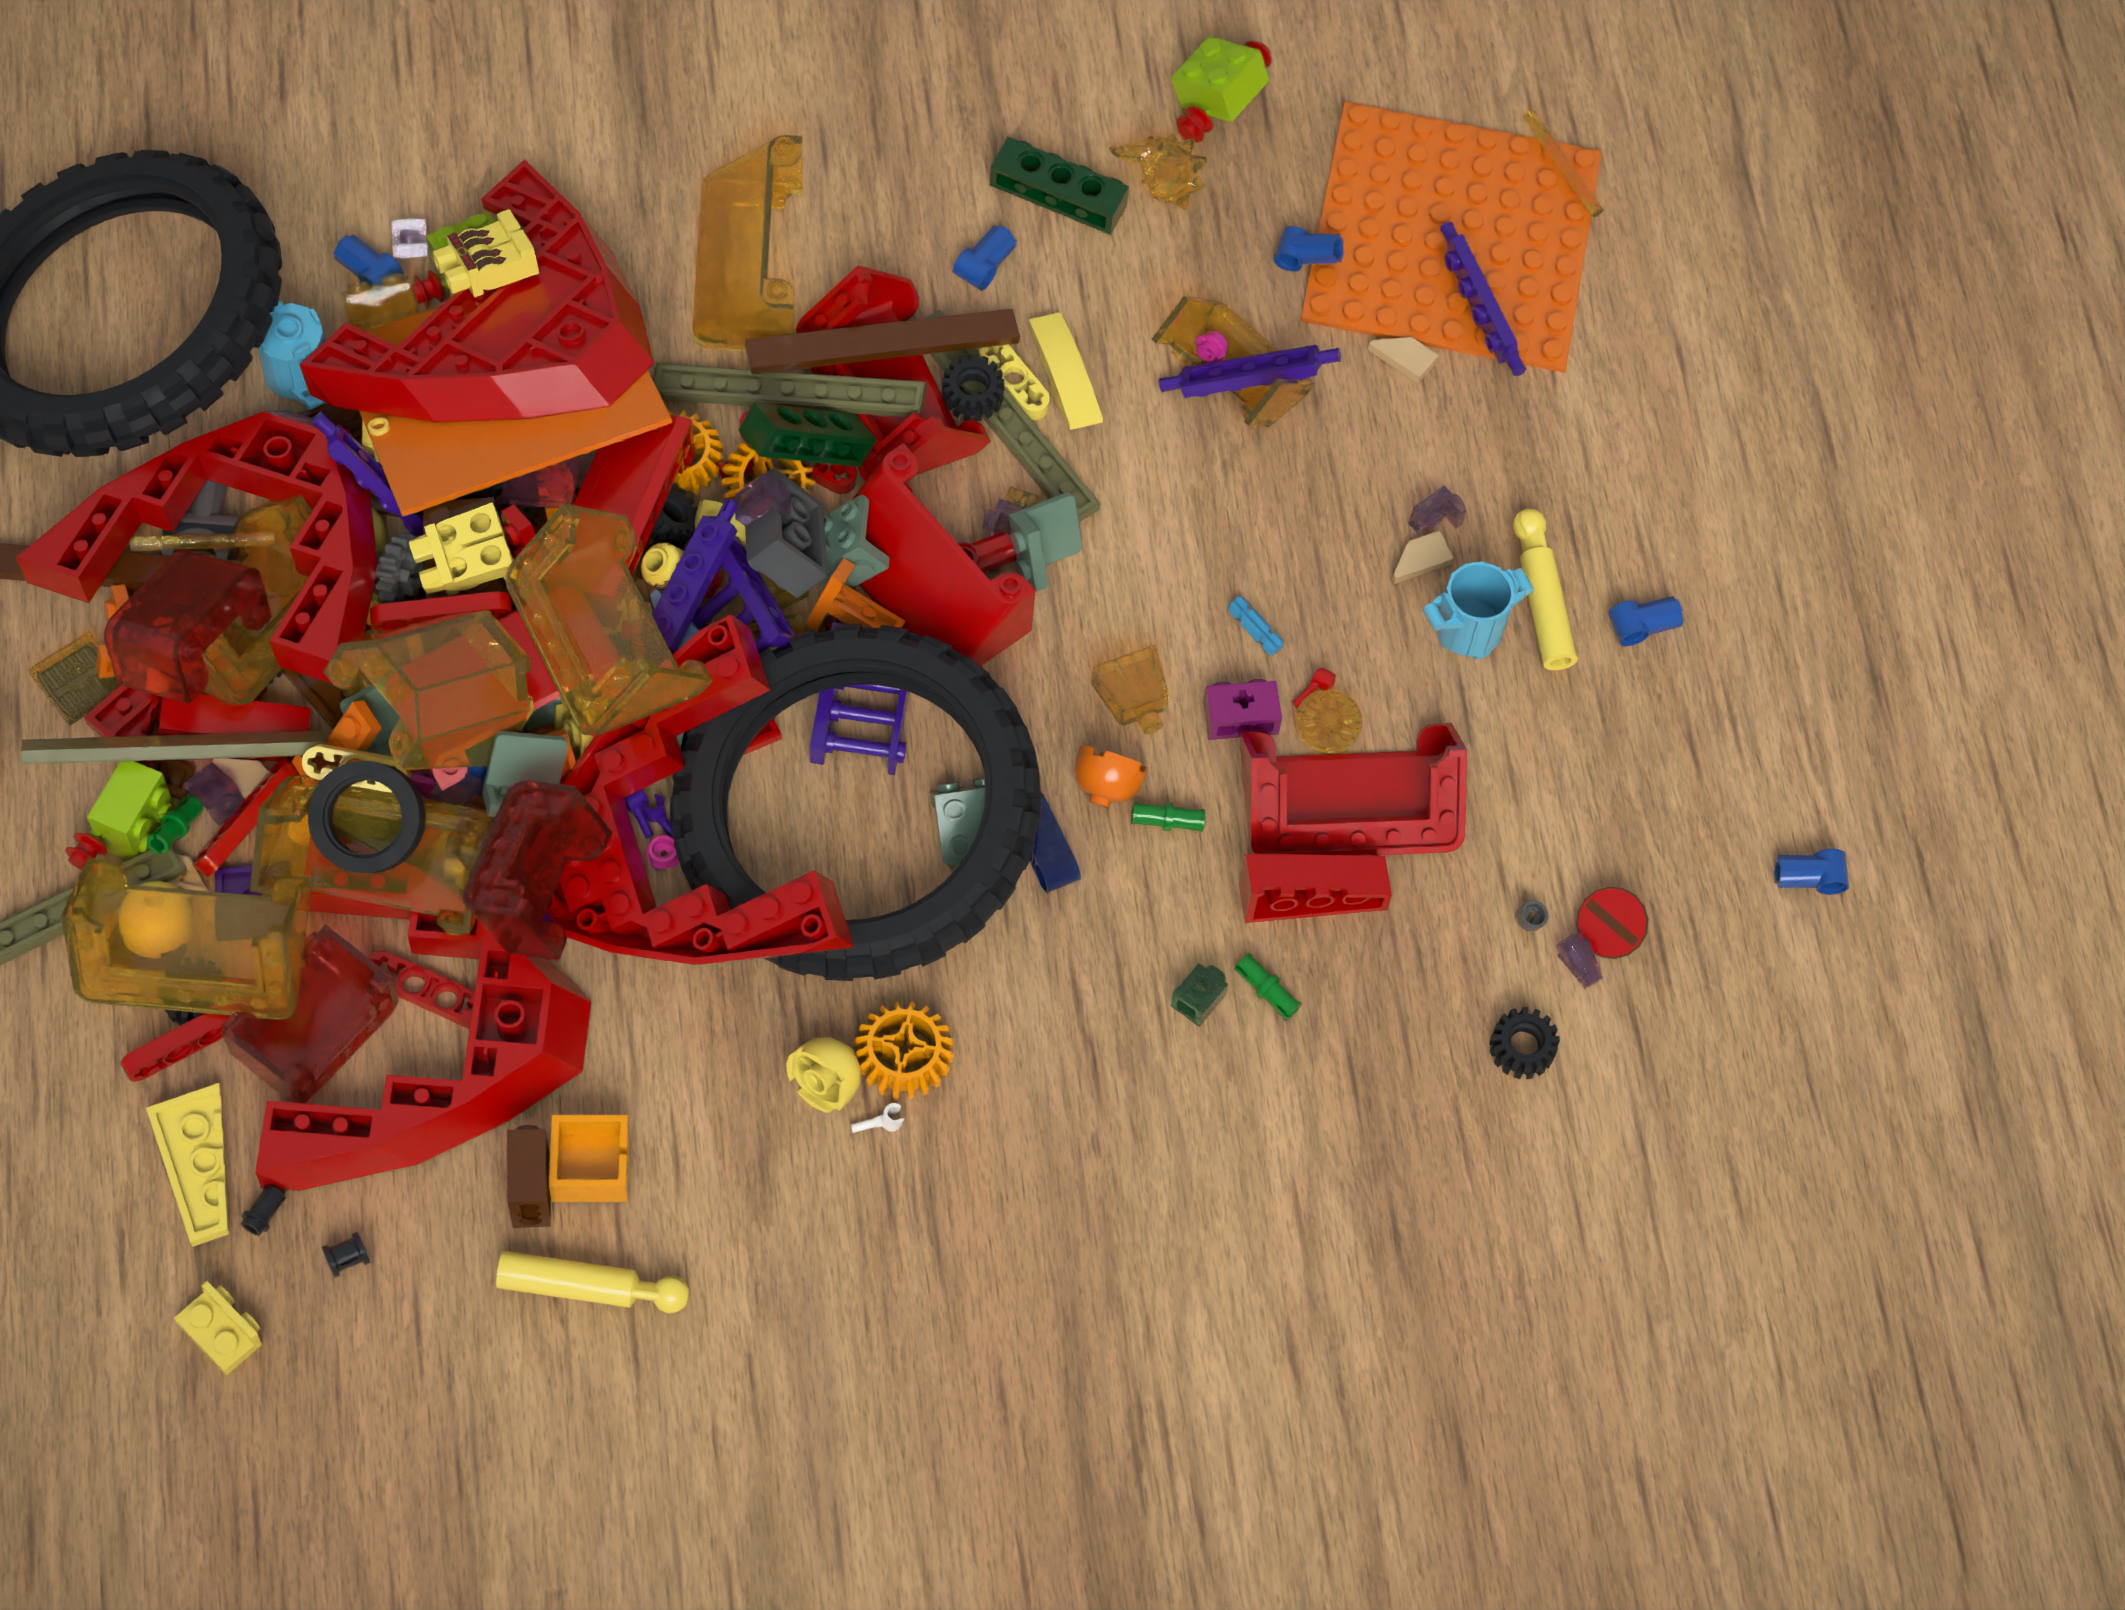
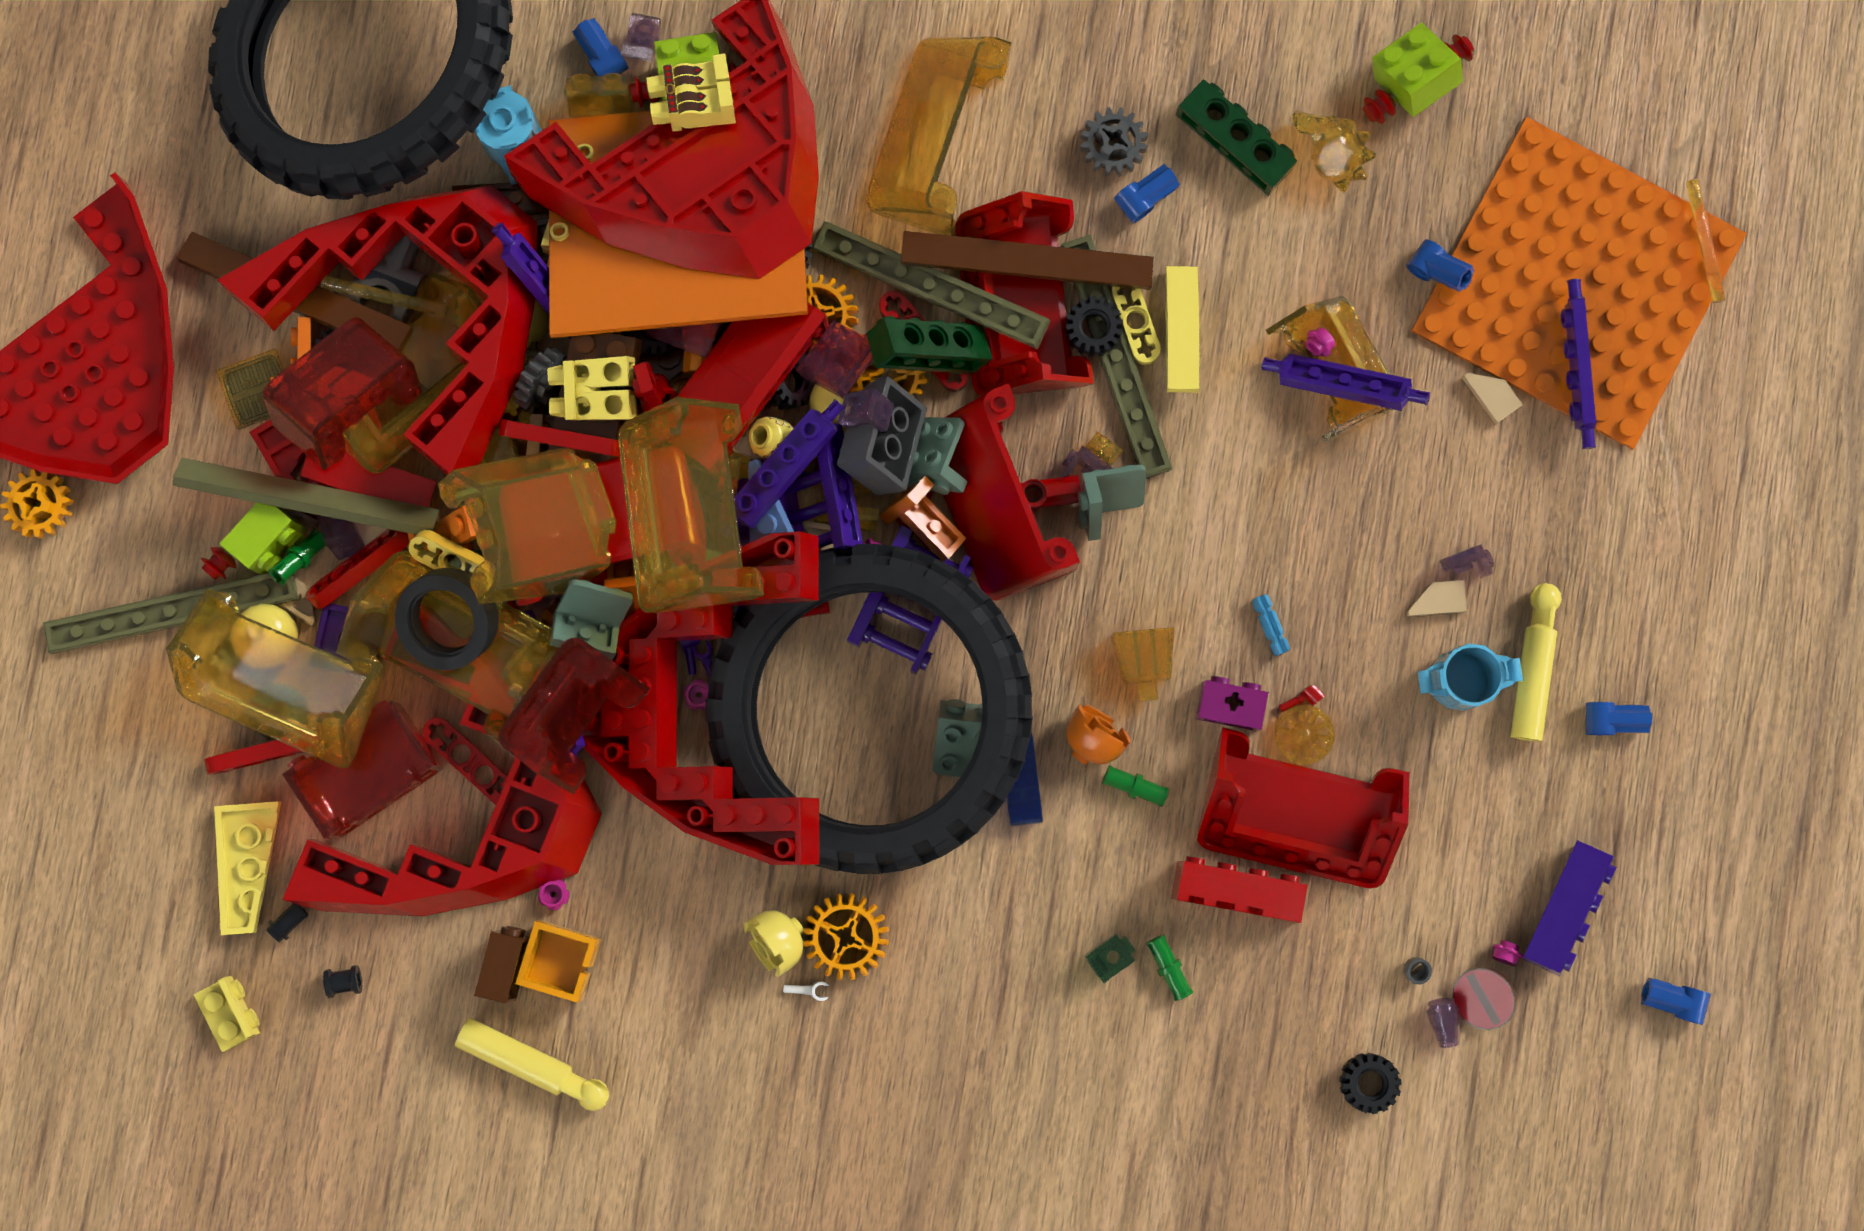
camera: 20 degrees right, 20 degrees up
(561, 1089) = (561, 898): none -> dark pink plate
(714, 472) = (837, 359): none -> clear pink plate
(935, 219) = (1108, 133): none -> dark grey gear
(1619, 874) = (1506, 953): none -> dark pink plate
(1666, 810) = (1568, 909): none -> dark purple brick

